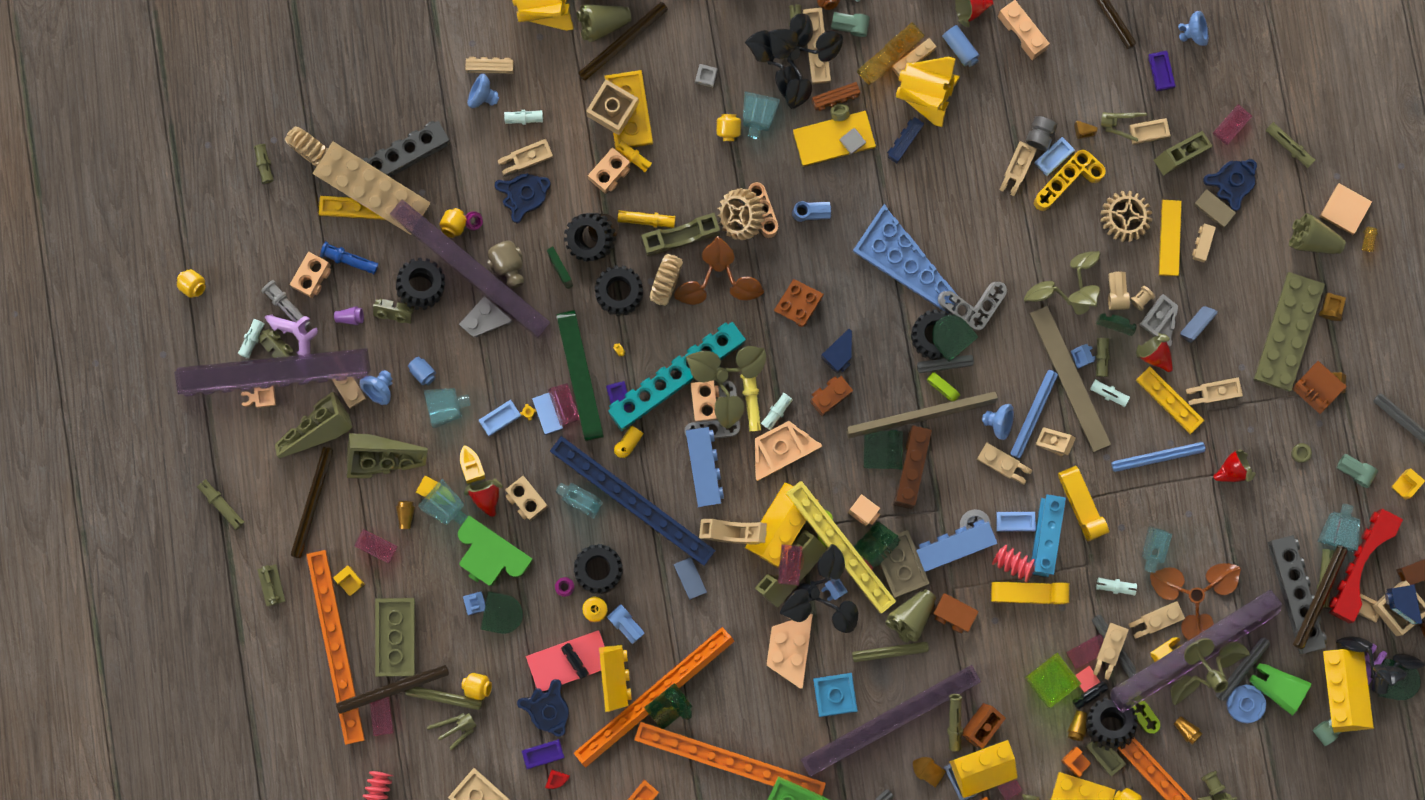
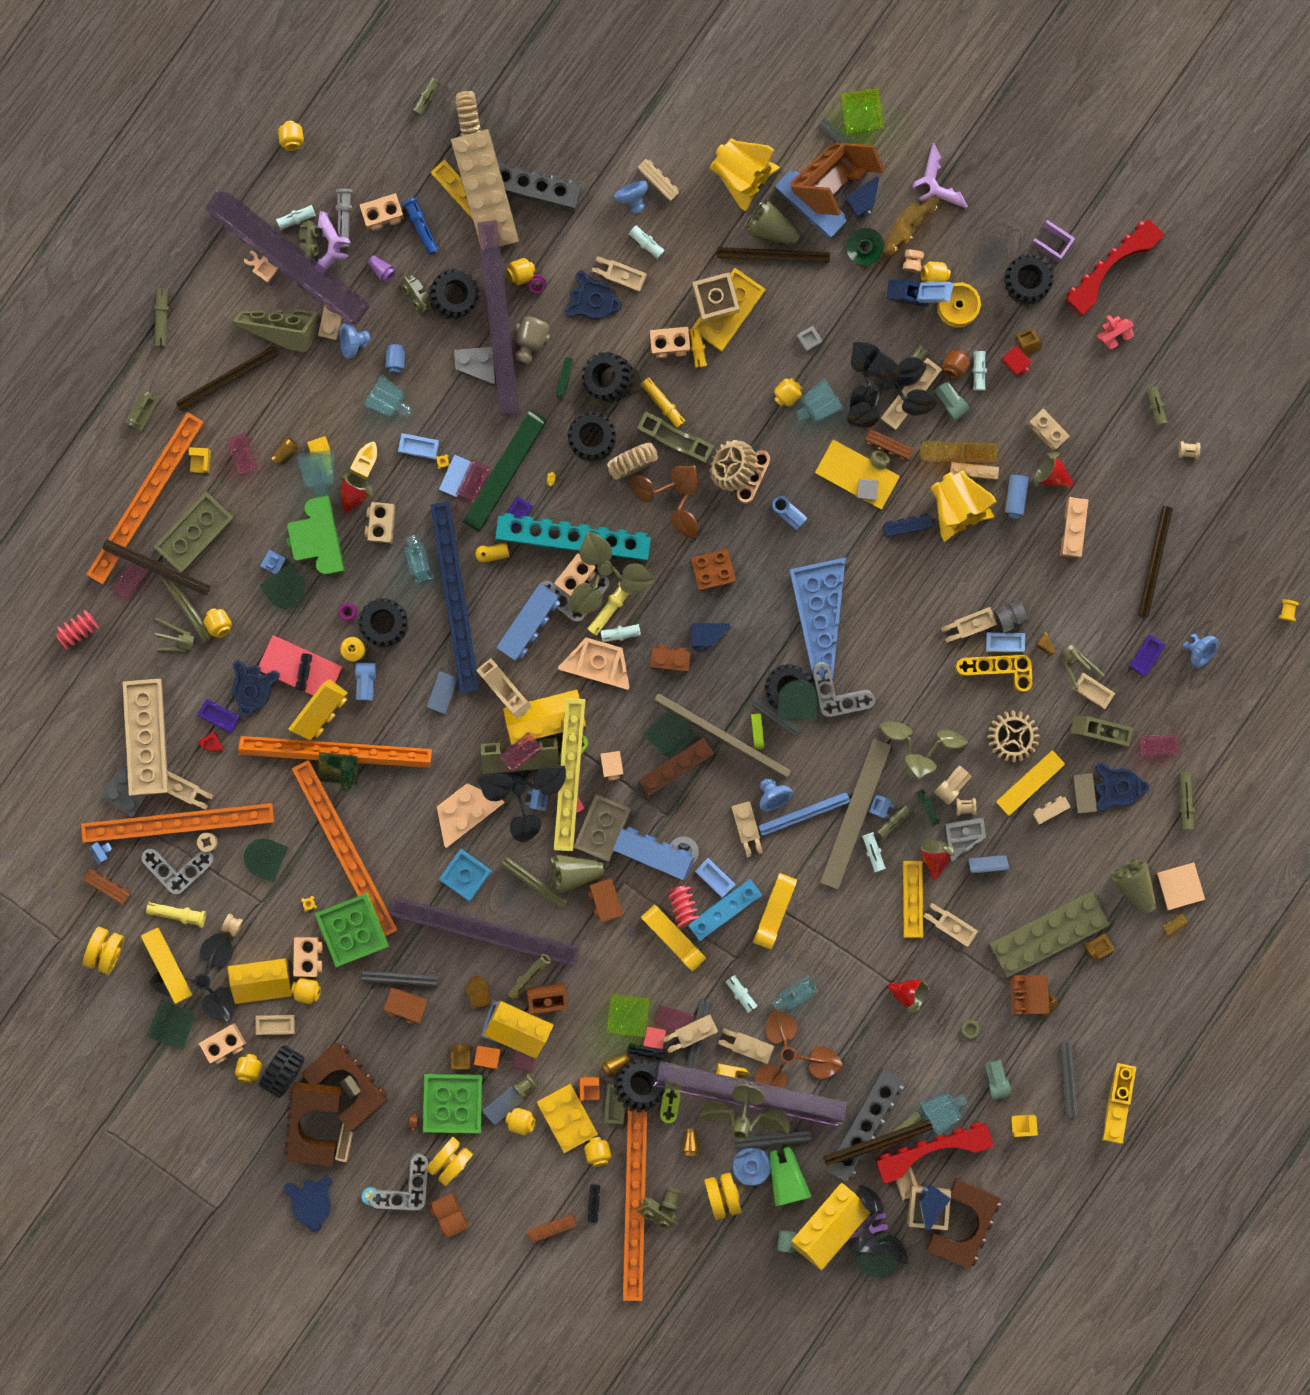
camera: 50 degrees right, 5 degrees up
(375, 454) = (304, 387): olive wedge -> none
(875, 543) = (598, 795): clear green hinge -> none
(1055, 441) = (799, 848): tan slope -> none
(1159, 456) = (863, 931): medium blue axle -> none
(1249, 744) = (722, 1196): none -> yellow wheel

